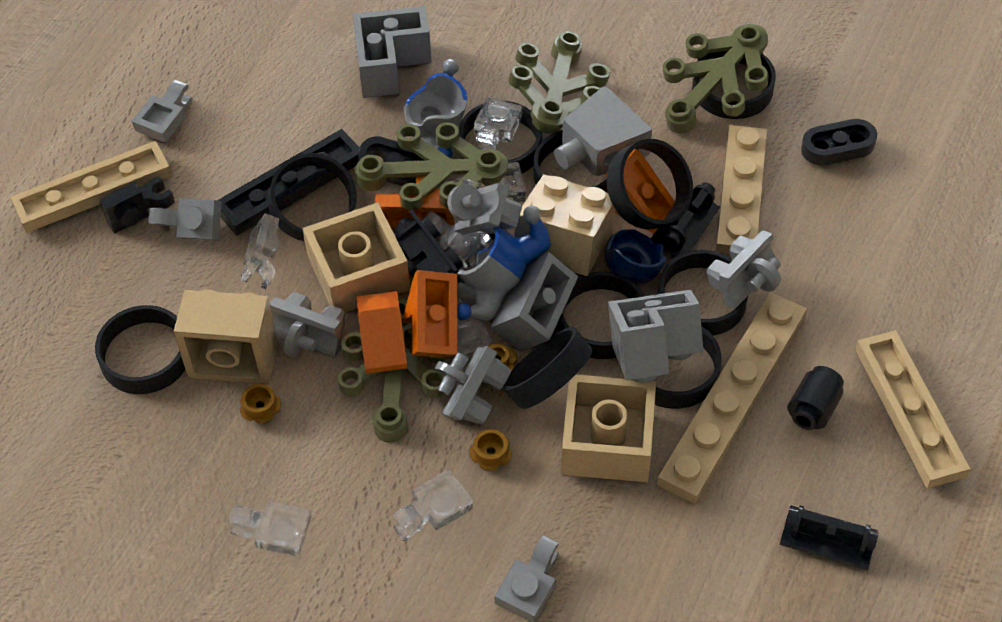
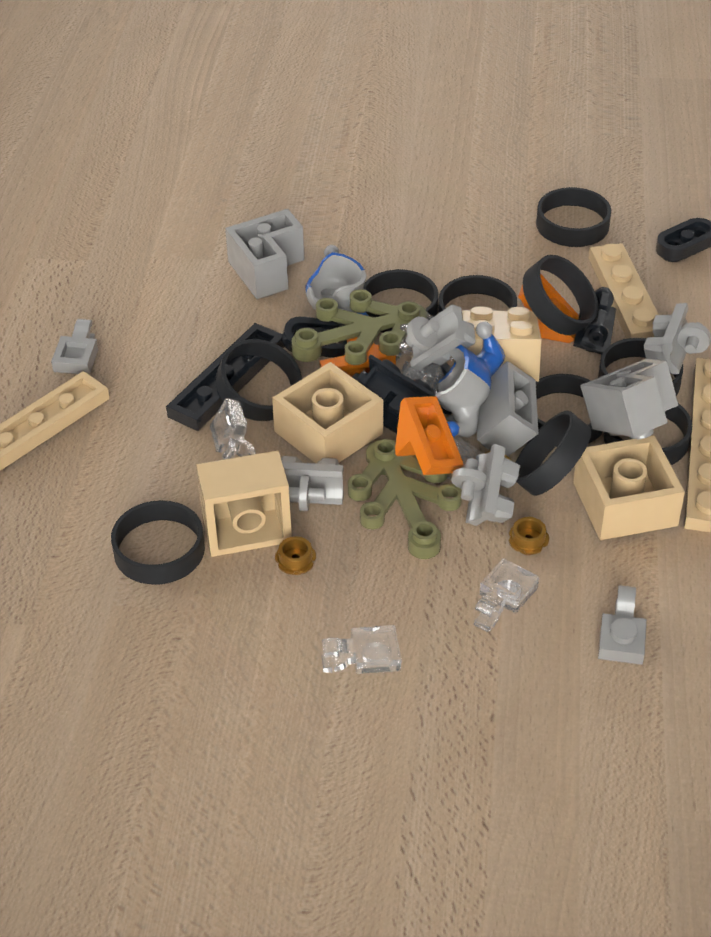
camera: 20 degrees left, 10 degrees down
(131, 203) = (83, 427): black plate -> none
(193, 219) = (154, 425): light grey plate -> none
(381, 332) = (385, 464): orange slope -> none
(496, 122) = (395, 283): clear plate -> none
(549, 112) = (435, 267): olive plant -> none
(599, 132) = (494, 270): light grey torso -> none
(634, 256) = (569, 358): dark blue hair -> none
(745, 42) = (572, 183): olive plant -> none

